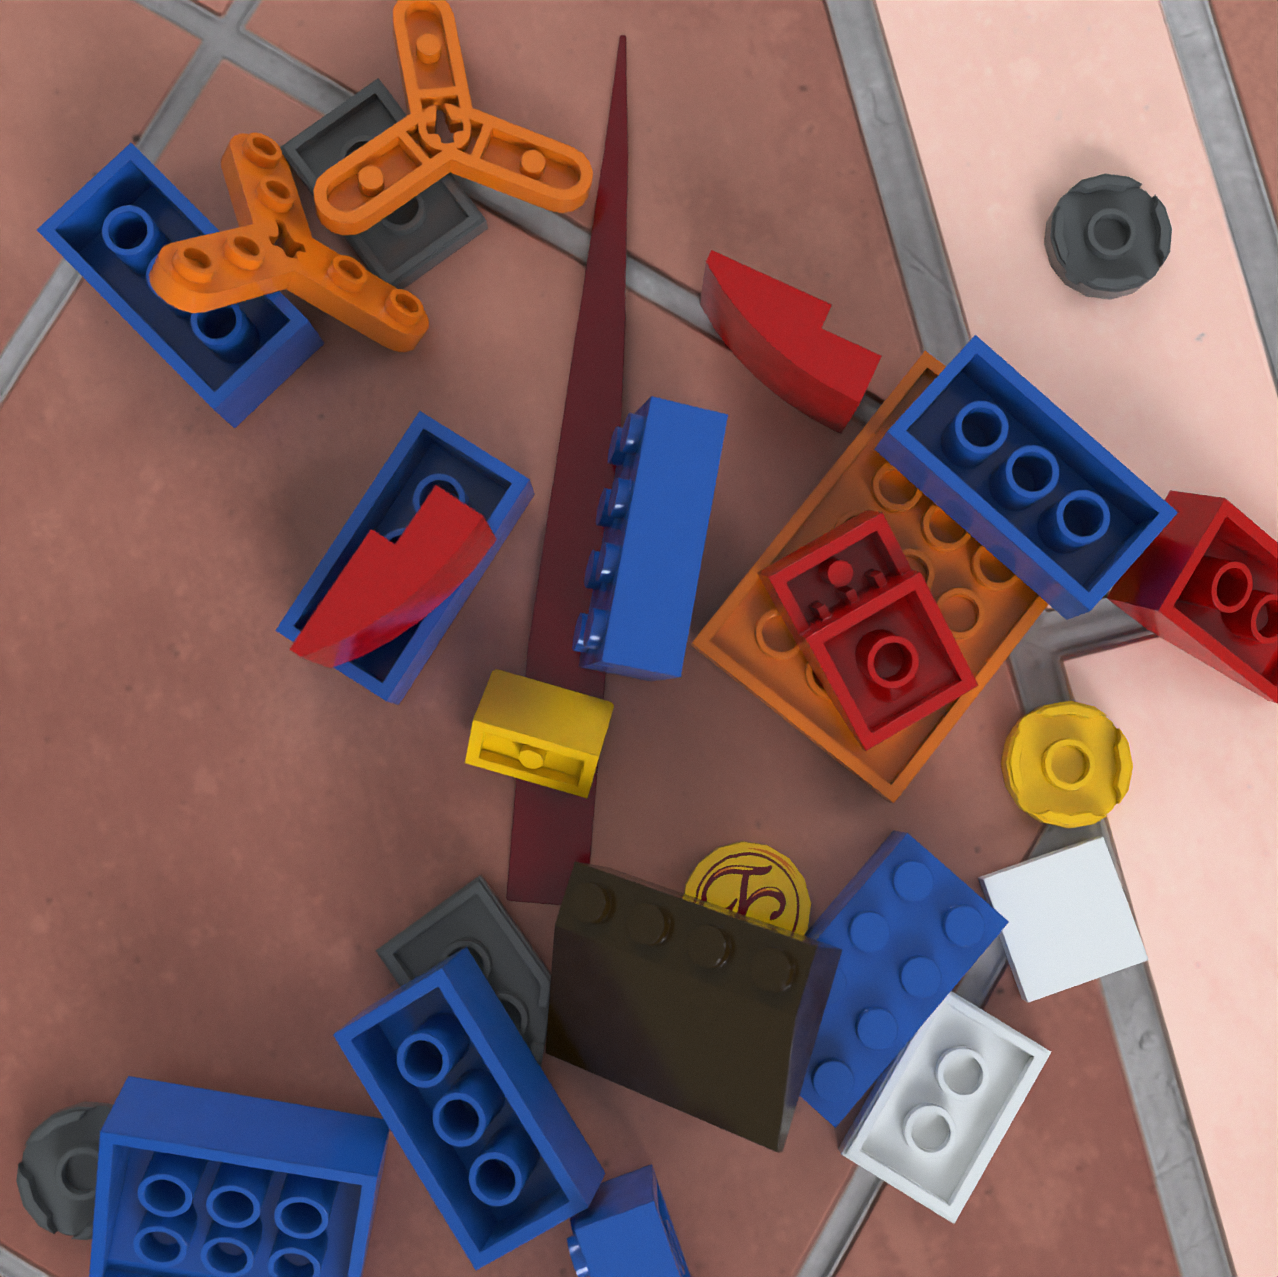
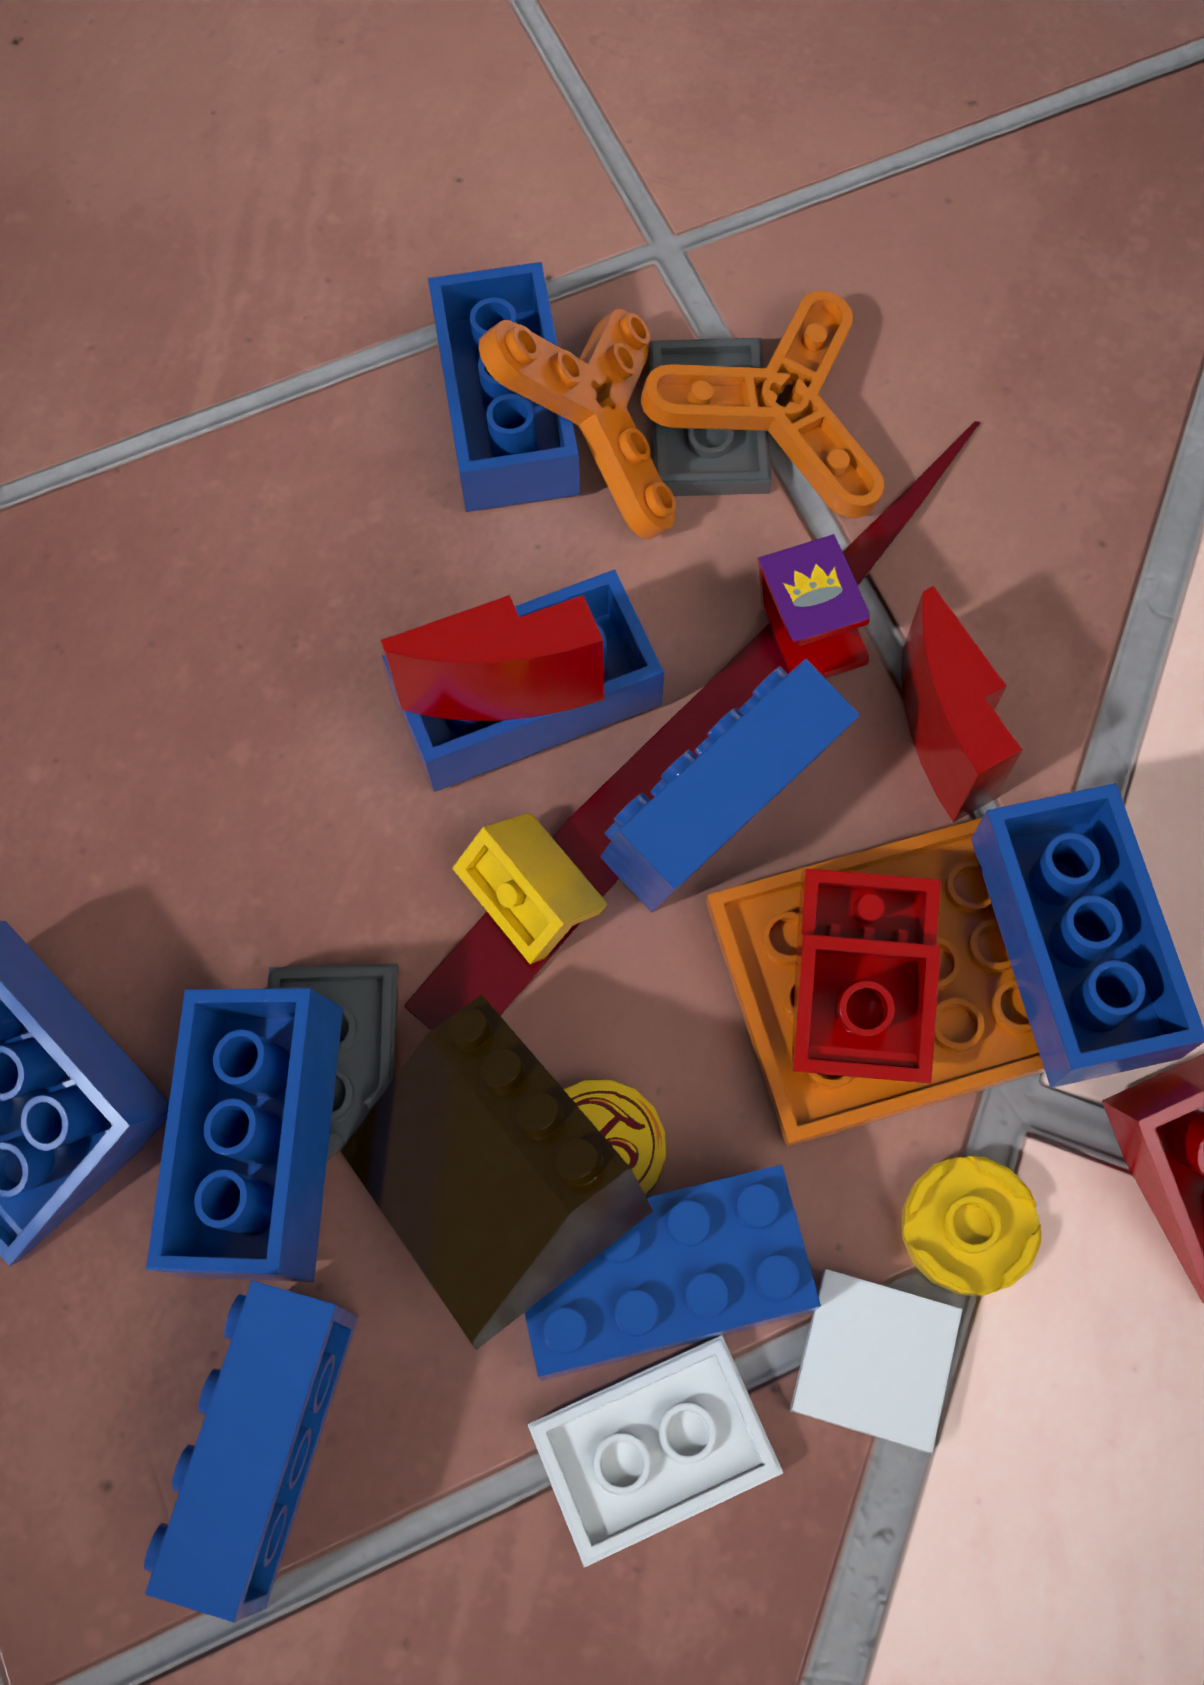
camera: 40 degrees right, 15 degrees down
(611, 326) = (814, 606): none -> piece

